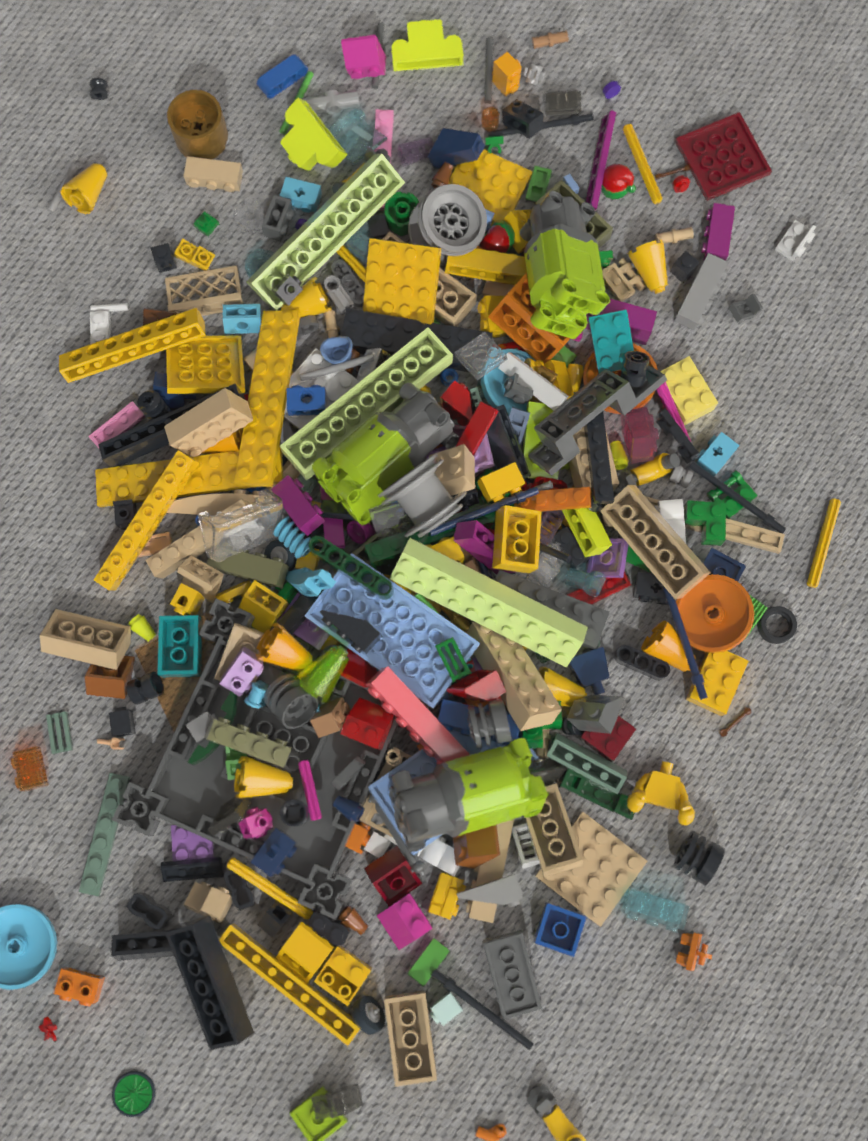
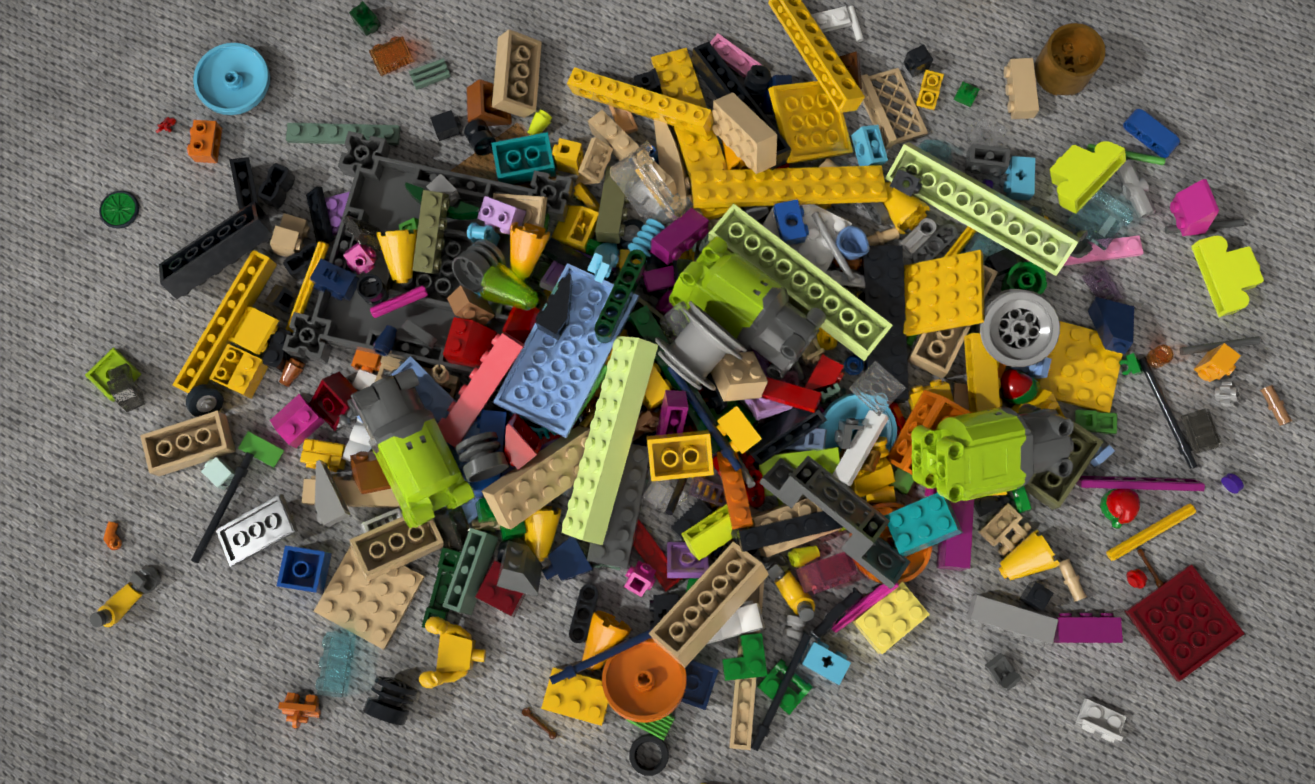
camera: 85 degrees right, 0 degrees up
(113, 743) = (426, 123): light nougat hand -> none
(442, 176) = (1076, 317): dark orange cone -> none
(460, 674) = (537, 426): green tile -> none
(523, 118) = (1168, 390): black brick -> none
(590, 582) = (657, 545): clear light blue piece -> none
(618, 604) = (640, 578): none -> dark pink brick
(635, 367) = (893, 549): black wheel -> none

